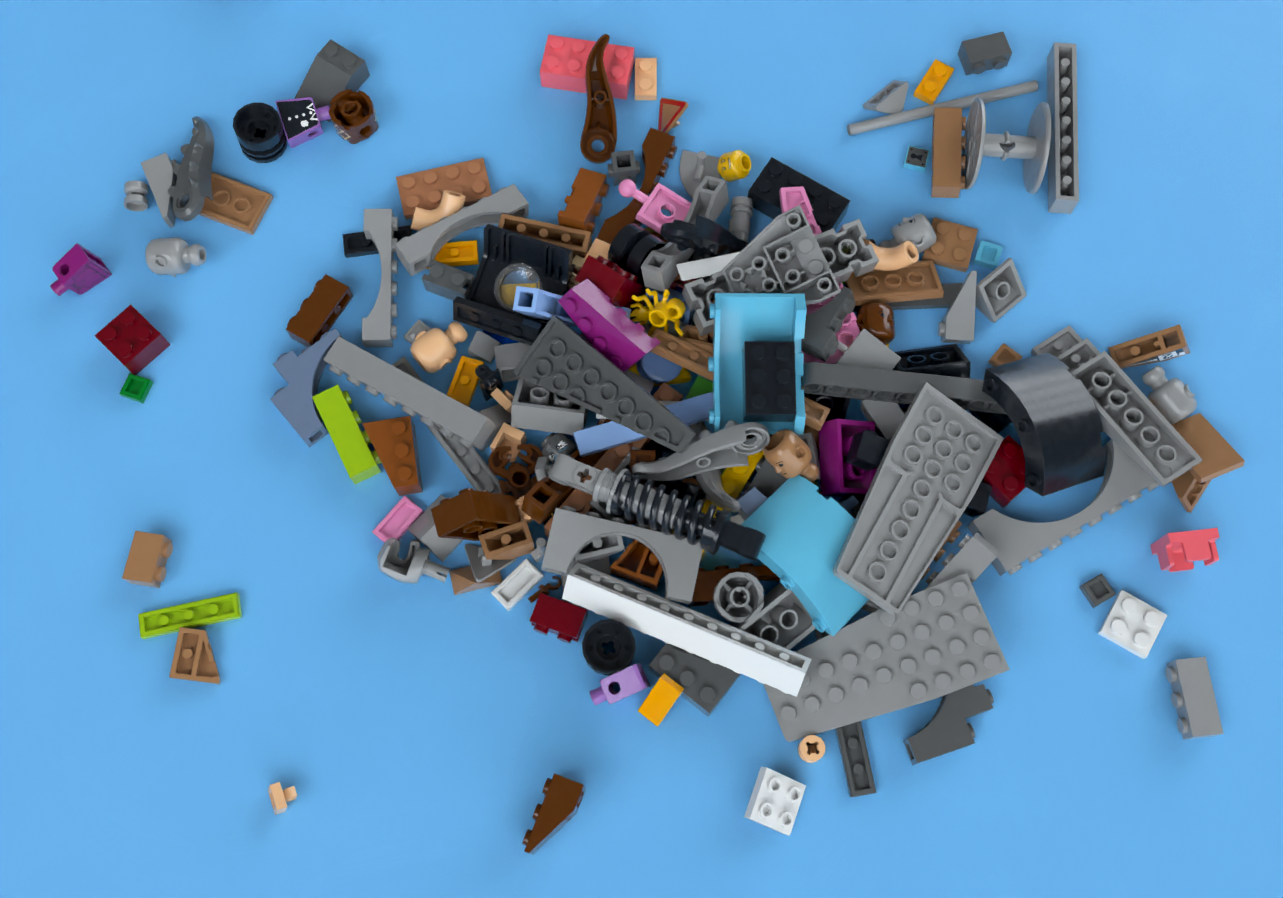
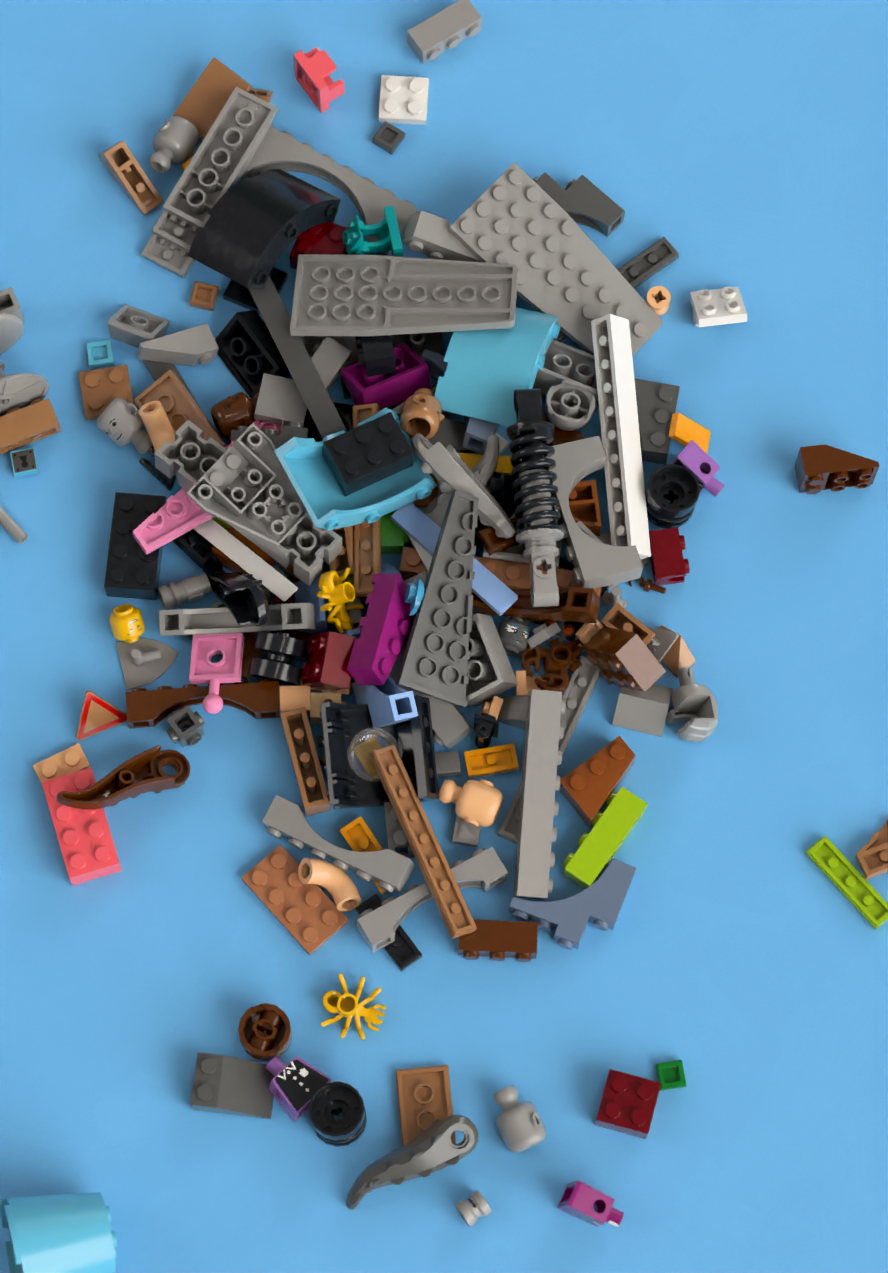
camera: 120 degrees left, 0 degrees up
(147, 559) = (824, 948): medium nougat brick -> none
(160, 178) = (442, 1188): light grey slope -> none
(339, 181) = (348, 1006): none -> yellow animal
(398, 520) = (659, 748): bright pink tile -> none
(422, 284) = (423, 841): none -> medium nougat tile
(517, 584) = (656, 611): white tile -> none
(584, 201) = (245, 746): dark orange wedge -> none
(619, 359) = (414, 595): none -> dark azure animal
(999, 496) = (387, 233): none -> teal tile

